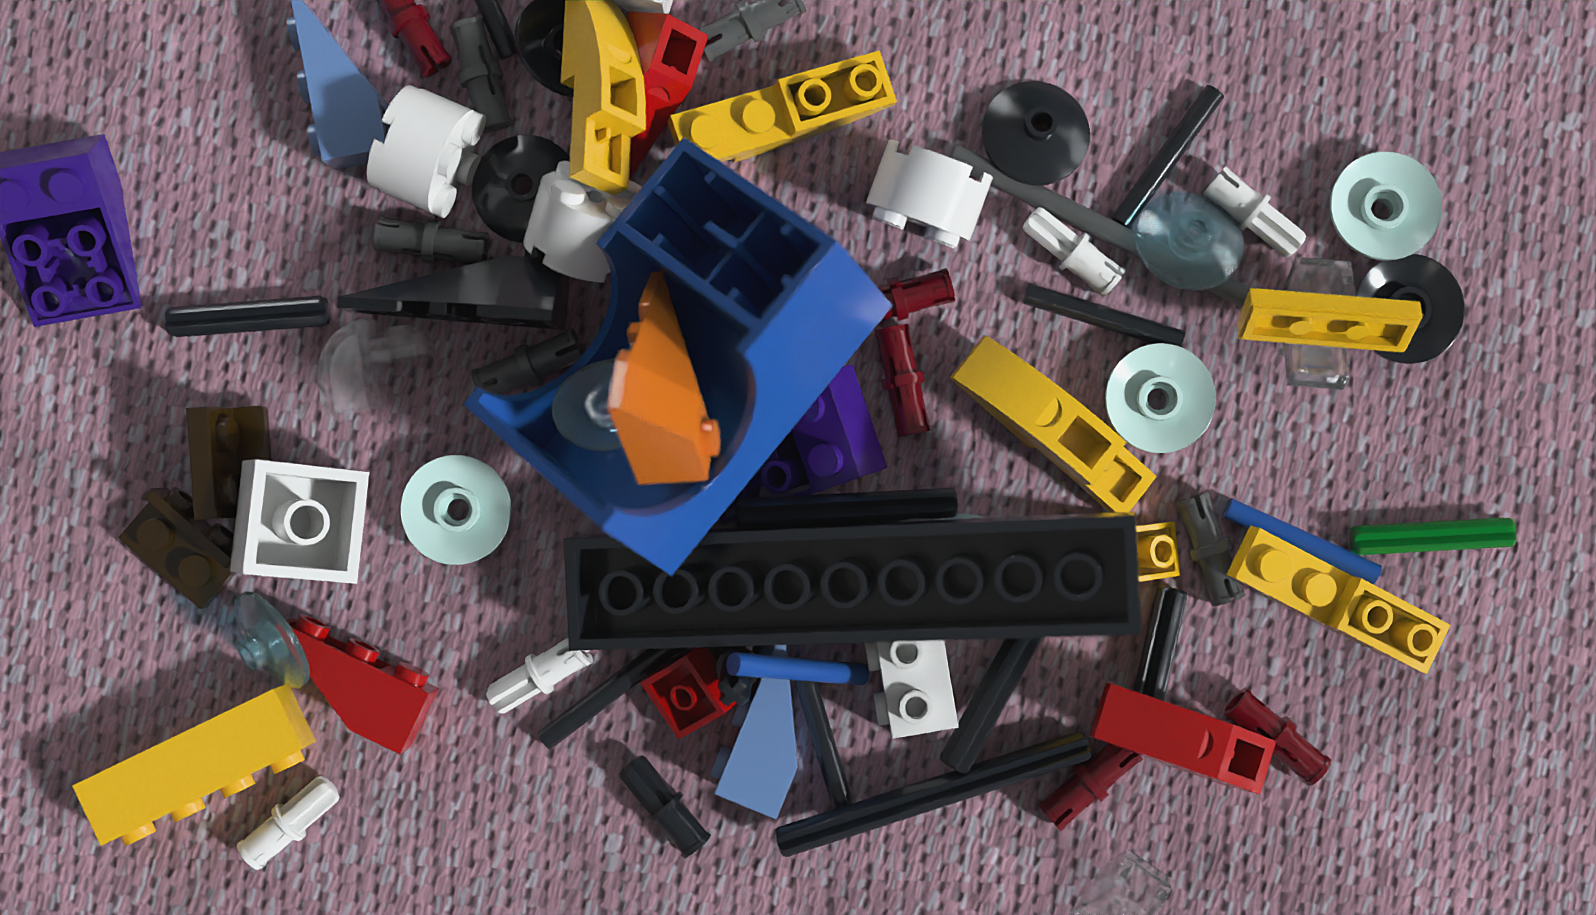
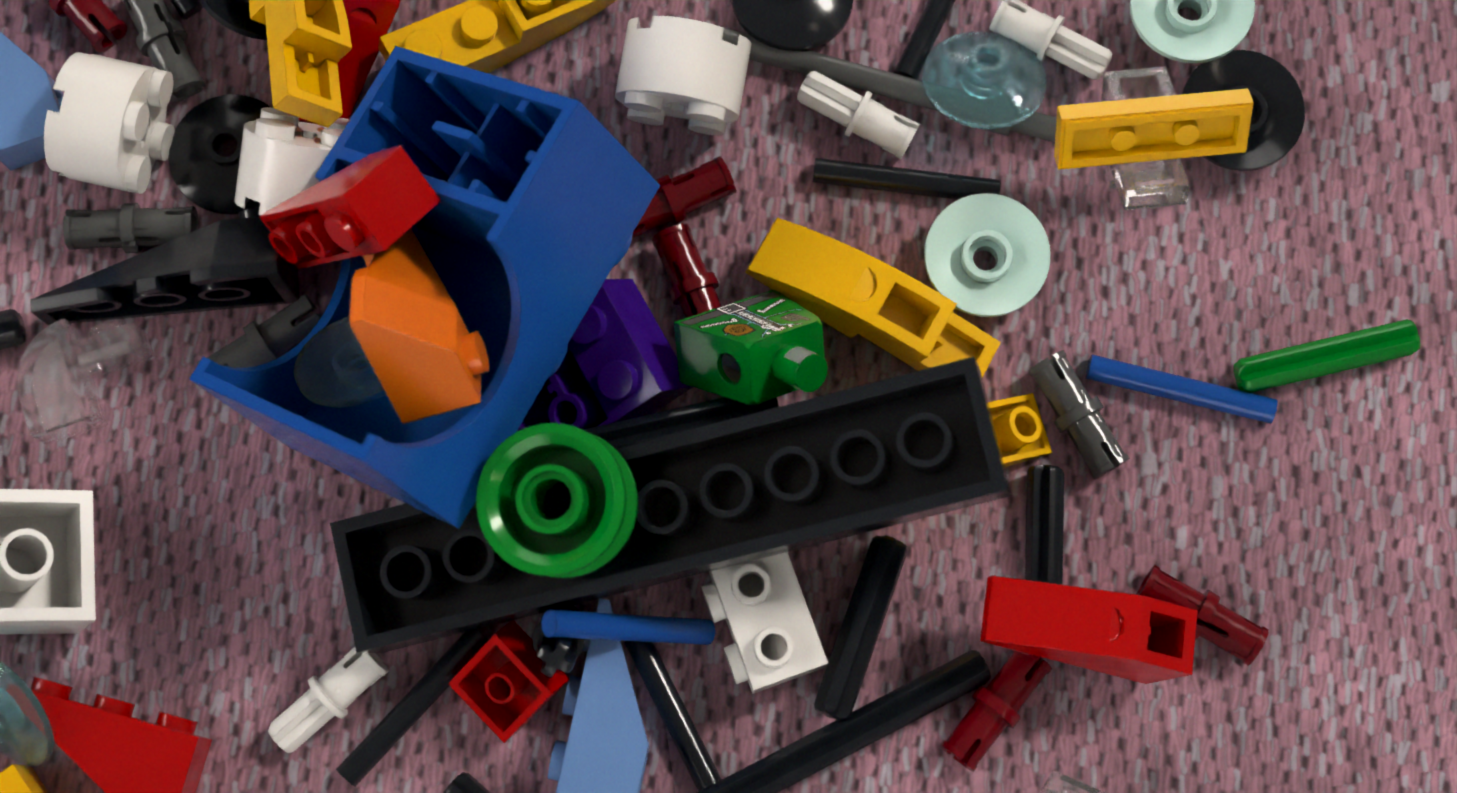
camera: 20 degrees left, 10 degrees down
(428, 514) = (176, 502): light aqua dish -> none
(624, 288) = (351, 211): none -> red slope
(721, 579) = (514, 493): none -> green wheel
(946, 453) = (752, 349): none -> green torso
(1338, 600) = (1234, 444): yellow slope -> none

